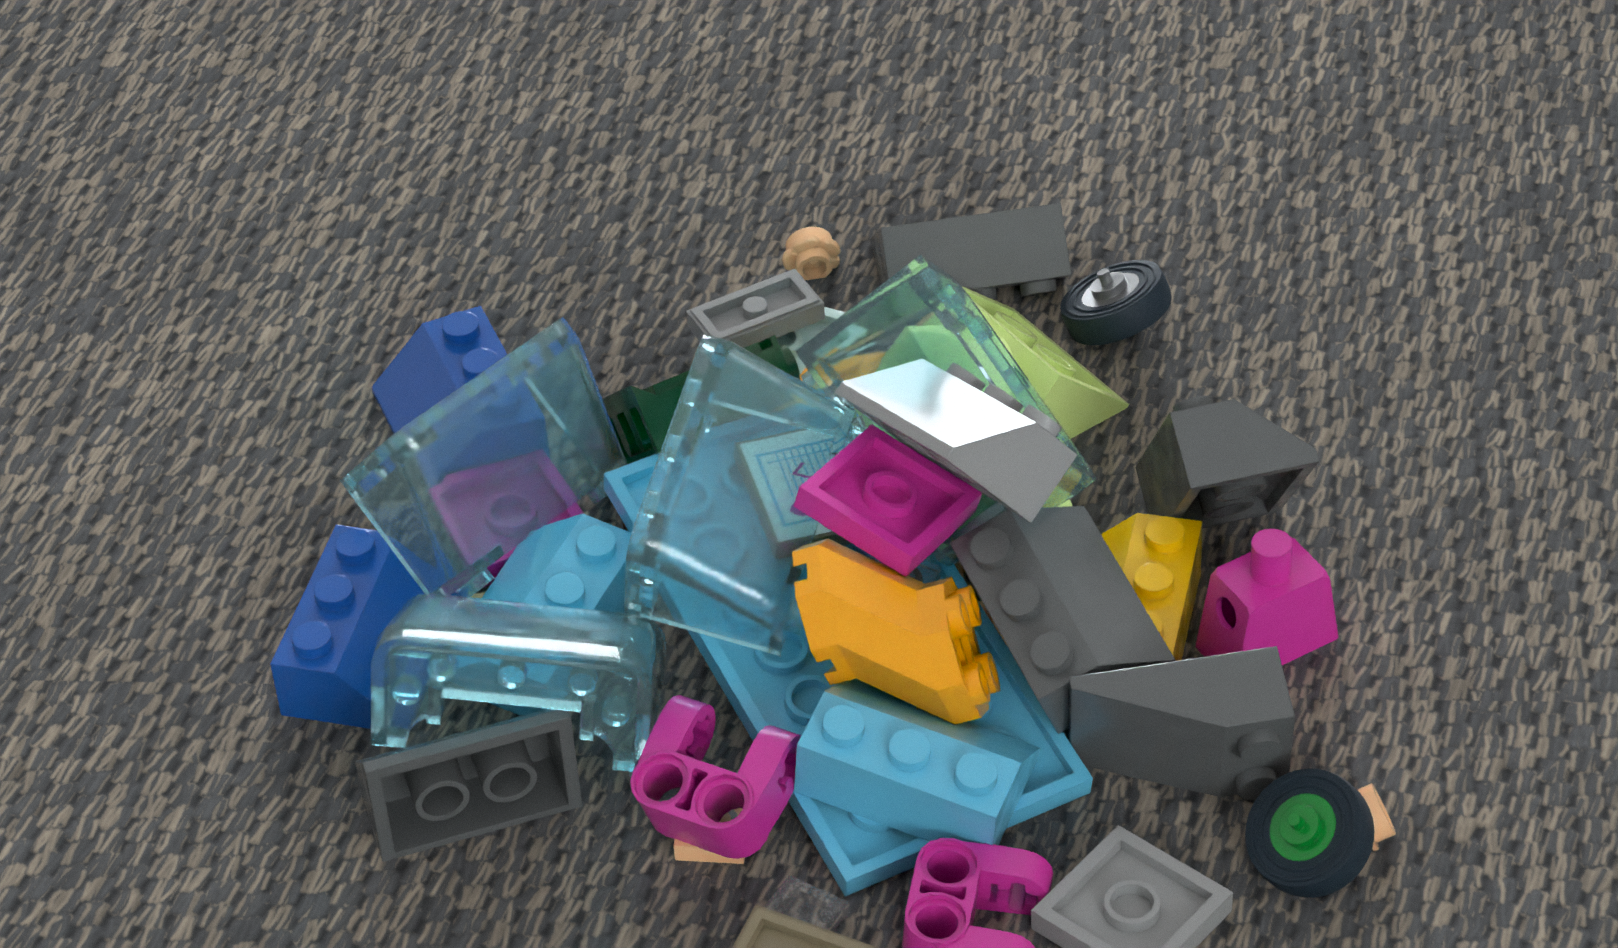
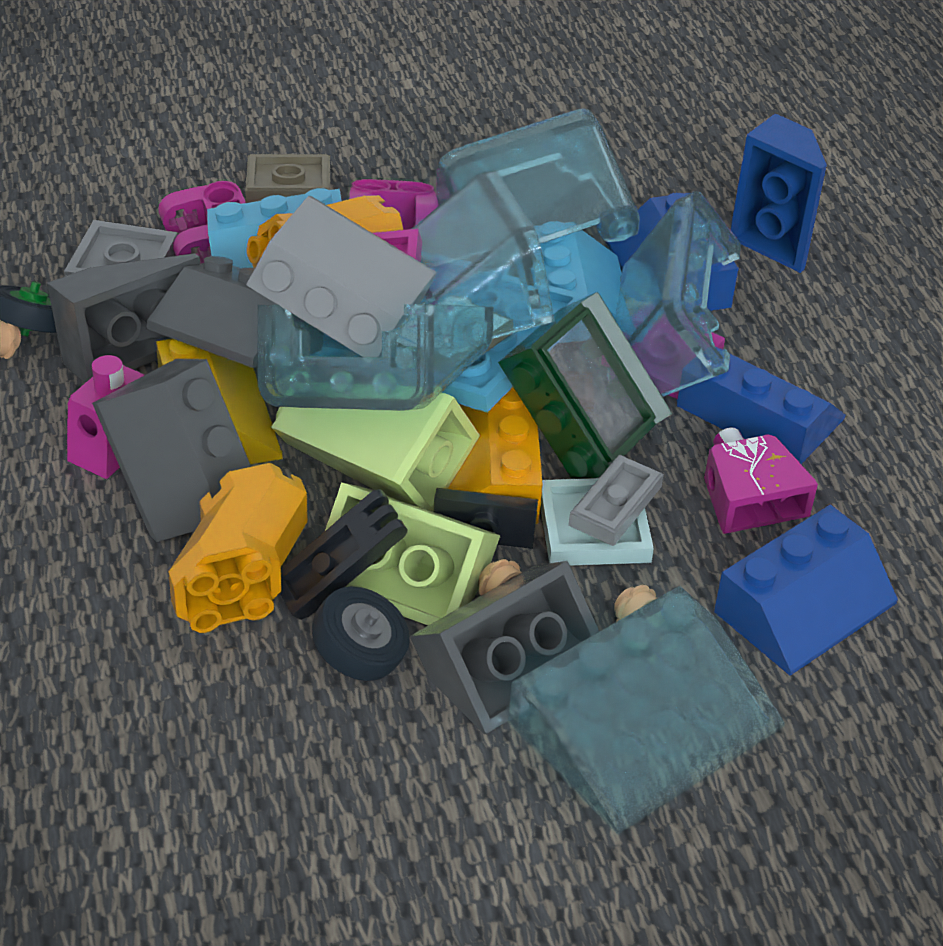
camera: 145 degrees right, 0 degrees up
(166, 591) = (779, 191): none -> blue slope
(596, 304) = (756, 482): none -> dark pink torso
(633, 218) = (806, 589): none -> blue slope
(887, 174) = (643, 708): none -> clear light blue slope
(1098, 350) = (340, 554): none -> black hinge
(1216, 353) = (238, 548): none -> light orange brick

